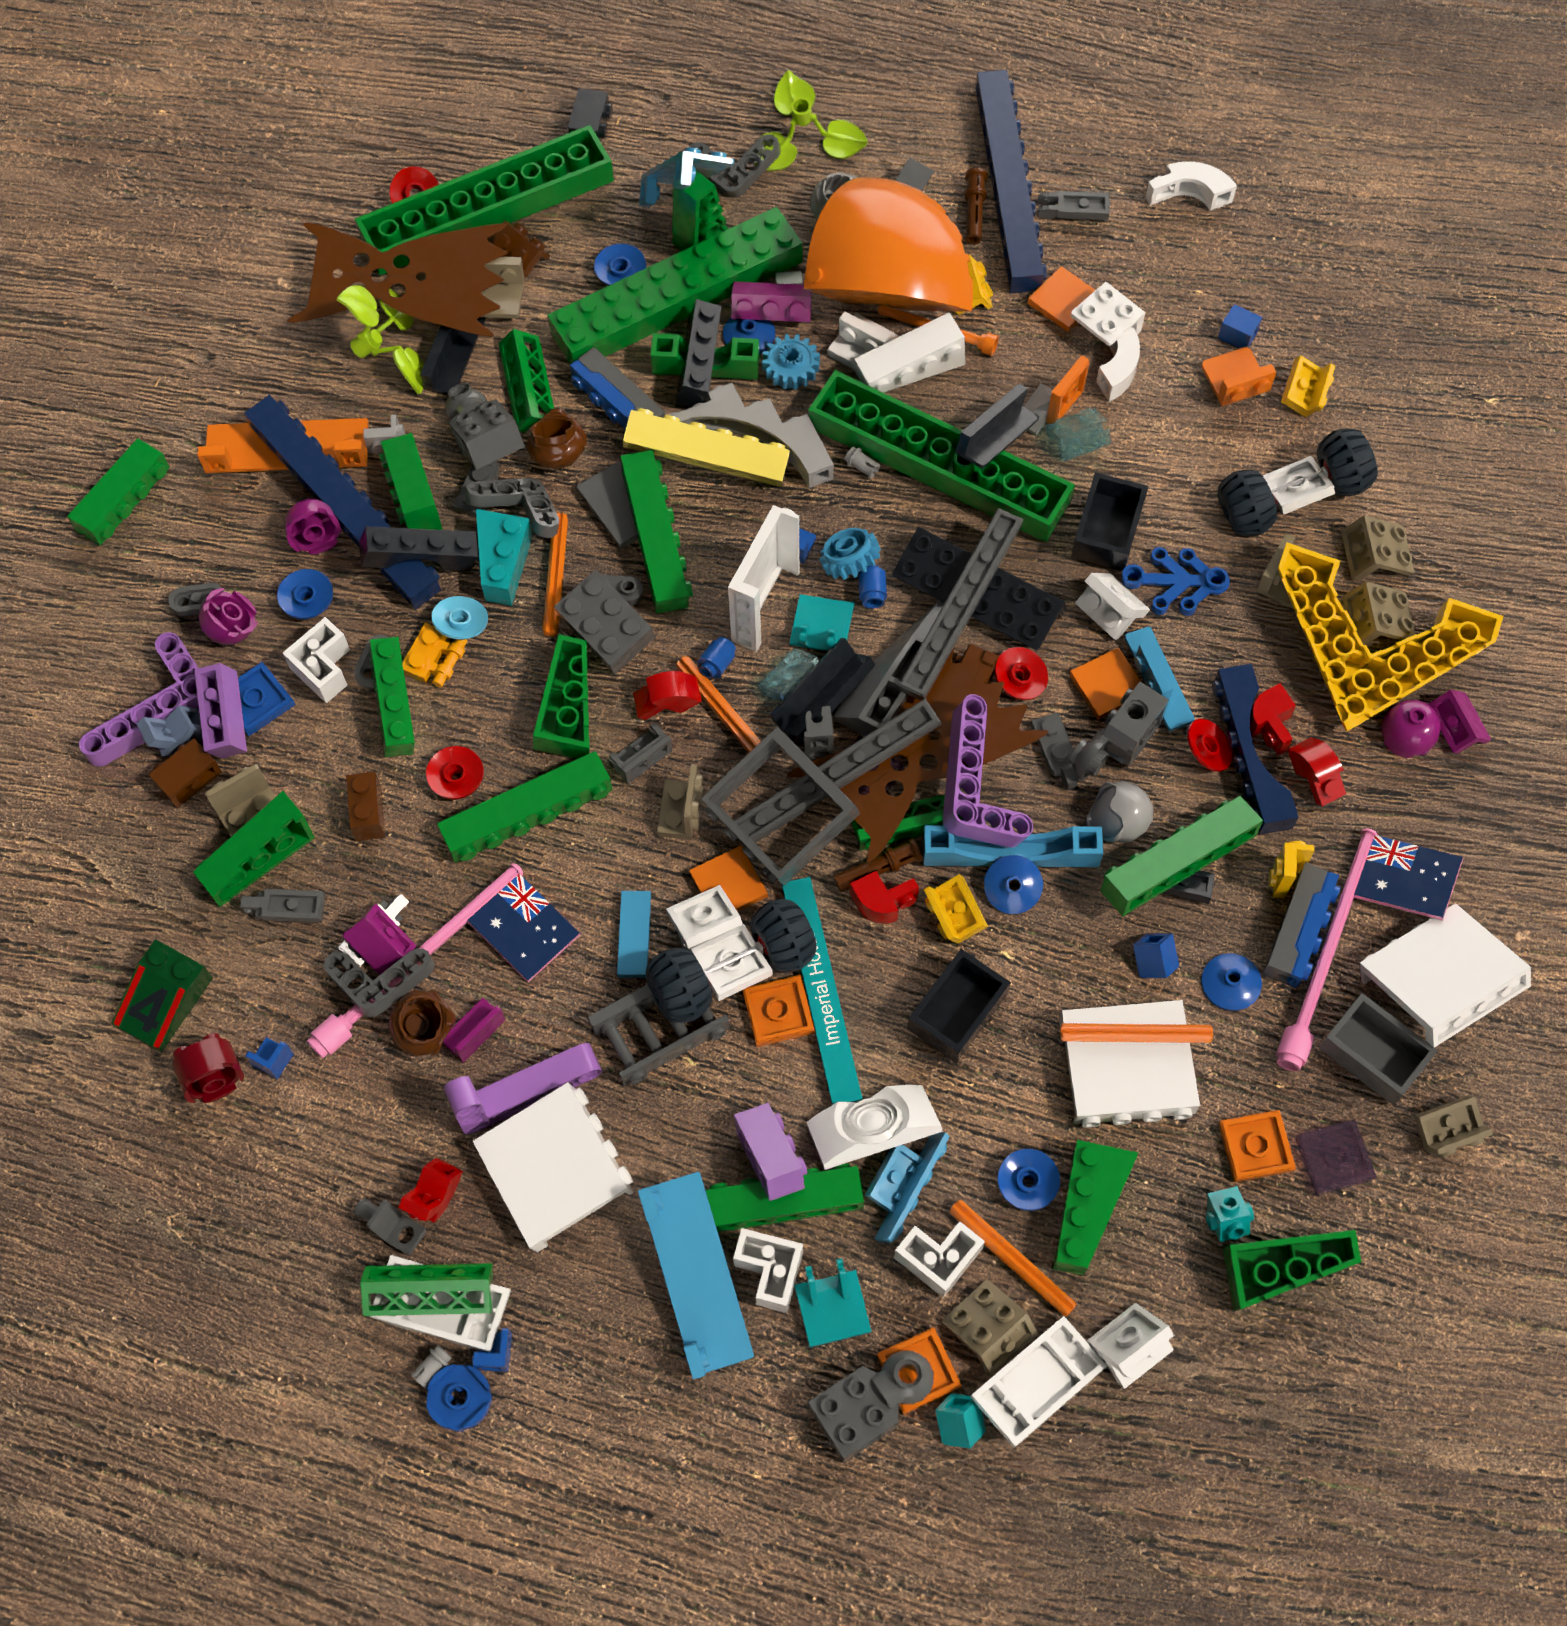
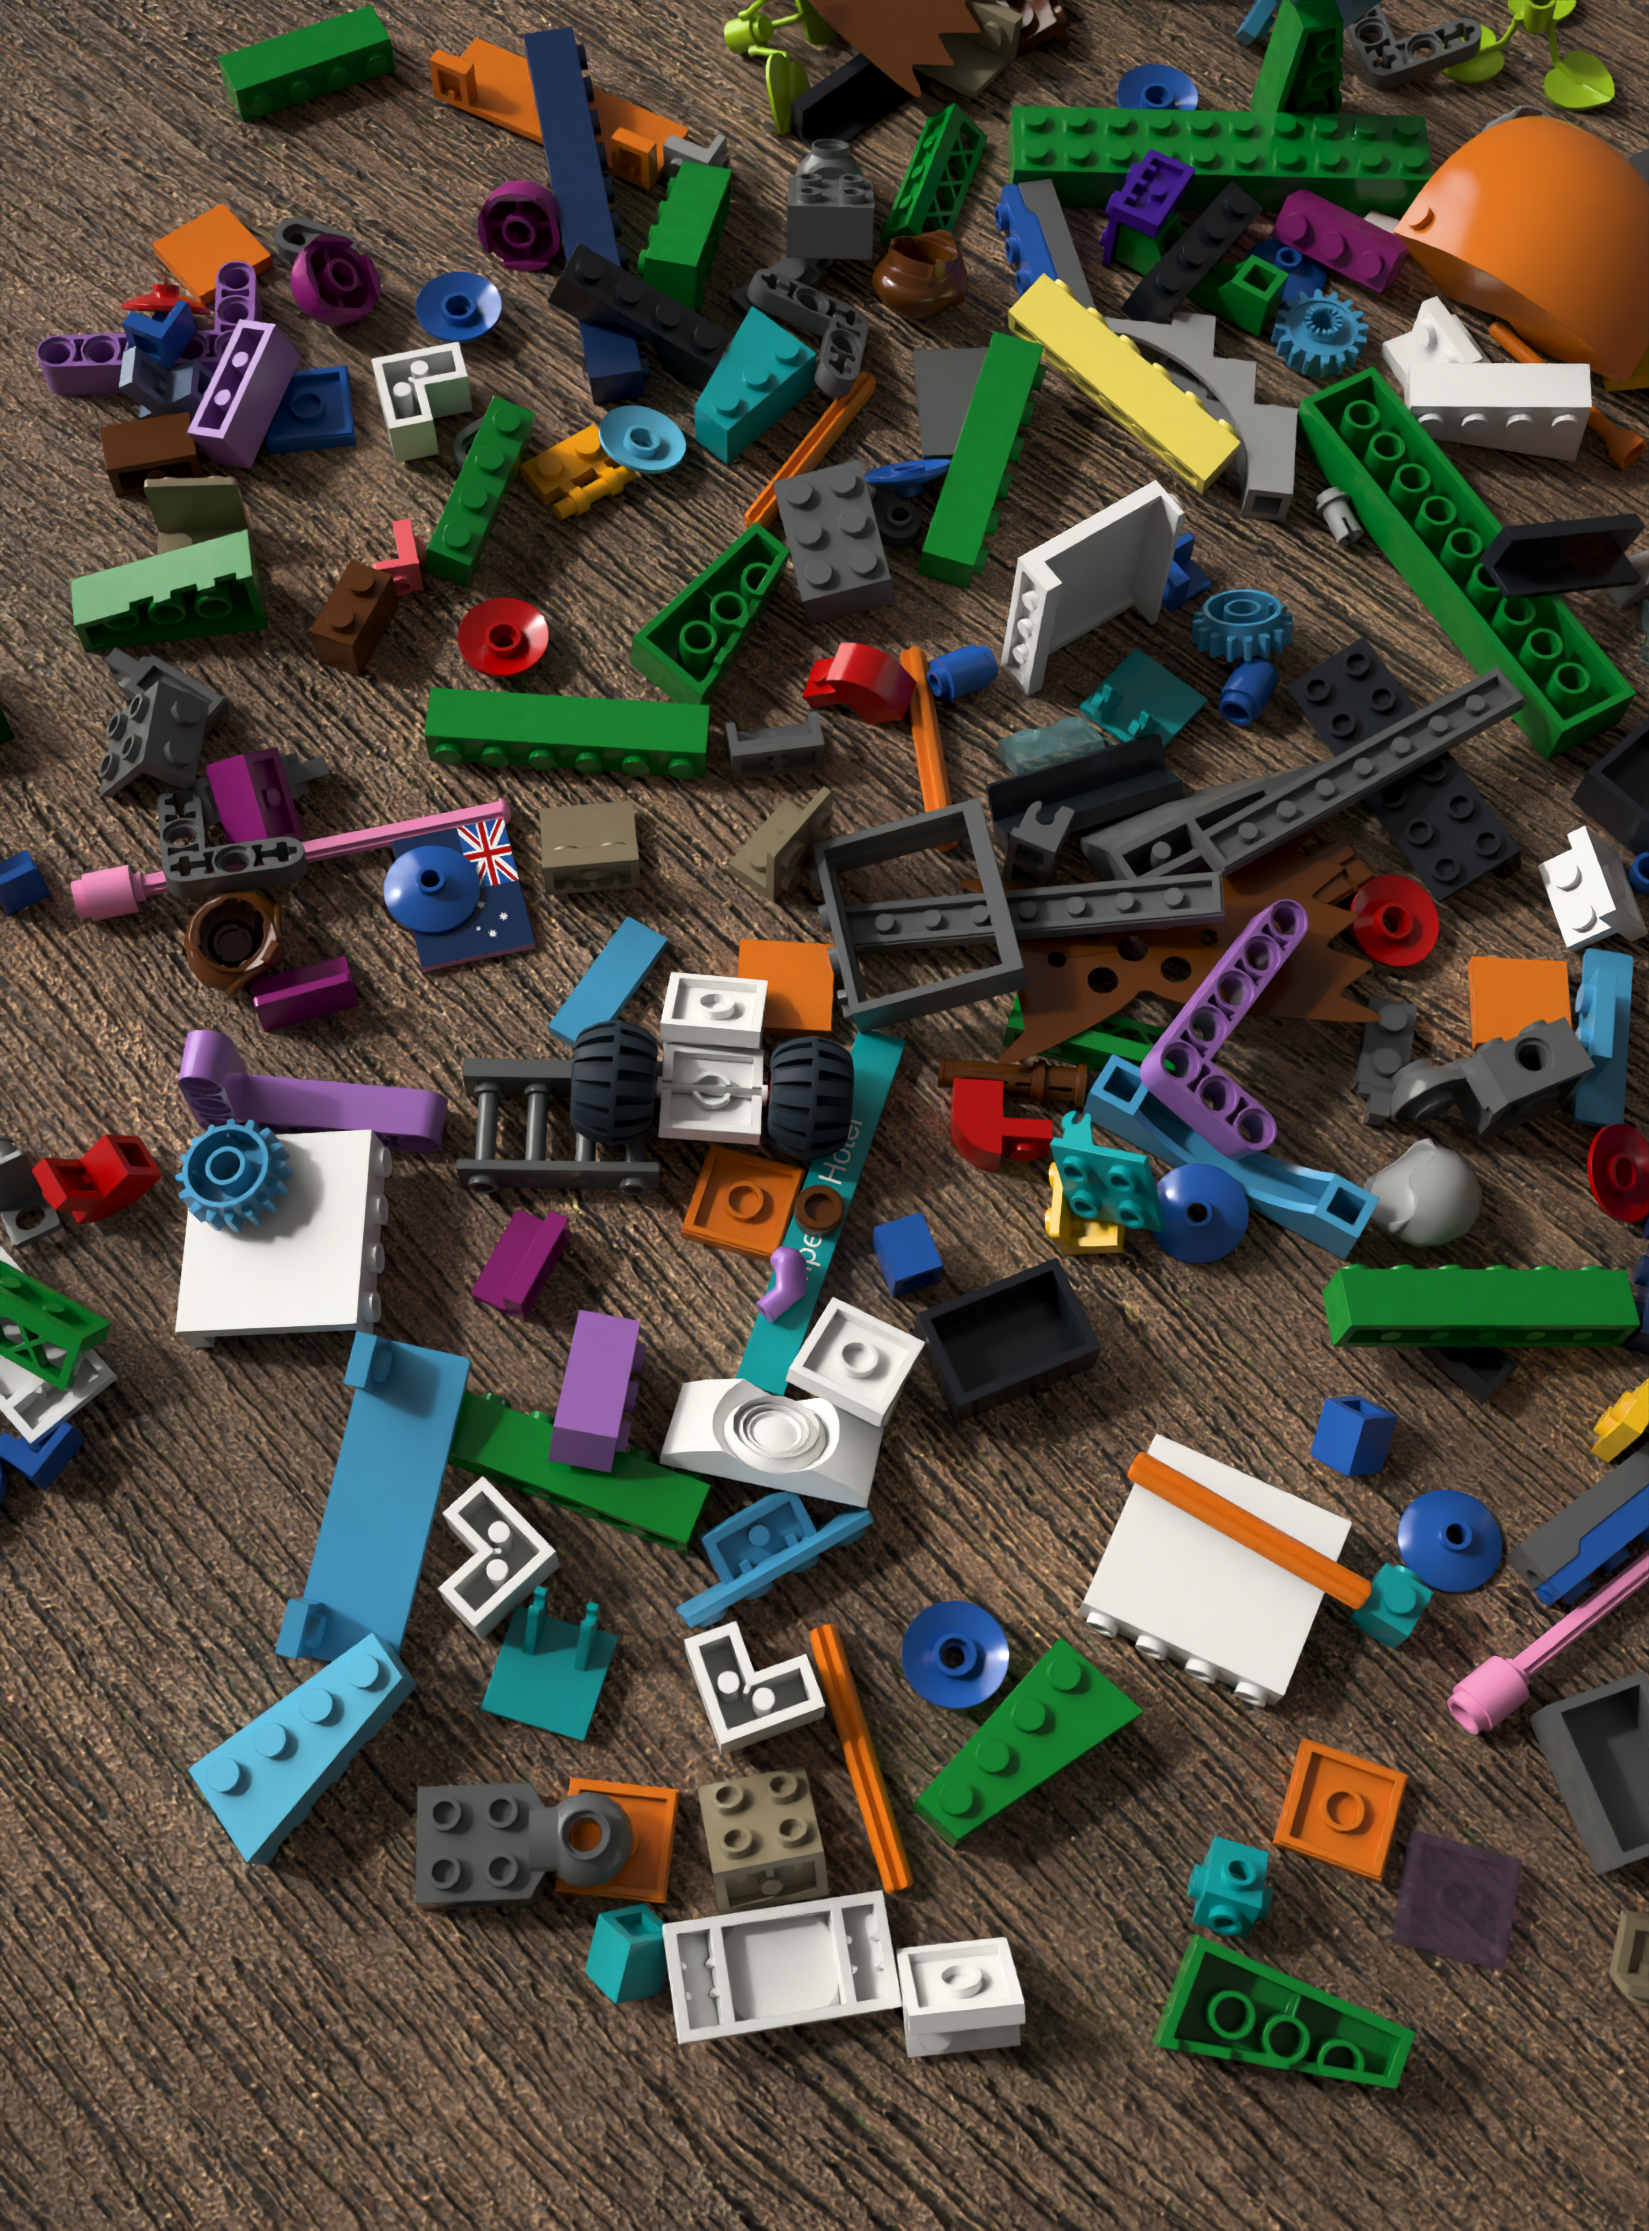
camera: 25 degrees right, 0 degrees up
(134, 635) = (204, 245): none -> orange tile
(136, 680) = (163, 300): none -> red dish
(150, 701) = (162, 335): none -> blue panel
(298, 935) = (155, 736): none -> dark grey bracket
(372, 753) = (411, 553): none -> coral bracket
(506, 947) = (437, 907): none -> blue dish
(522, 1158) = (213, 1160): none -> dark azure gear
(577, 864) = (589, 848): none -> dark tan bracket
(620, 559) = (908, 476): none -> blue dish
(657, 334) = (1147, 198): none -> dark purple bracket
(683, 1108) = (522, 1263): none -> magenta panel
(732, 1424) = (291, 1753): none -> medium azure wedge
(822, 992) = (819, 1211): none -> reddish brown tile
(831, 1038) = (790, 1283): none -> medium lavender arm
(880, 990) = (907, 1254): none -> blue panel
(891, 1060) = (856, 1362): none -> white bracket
(962, 895) = (1105, 1180): none -> teal plate
(1226, 1030) = (1393, 1605): none -> teal brick

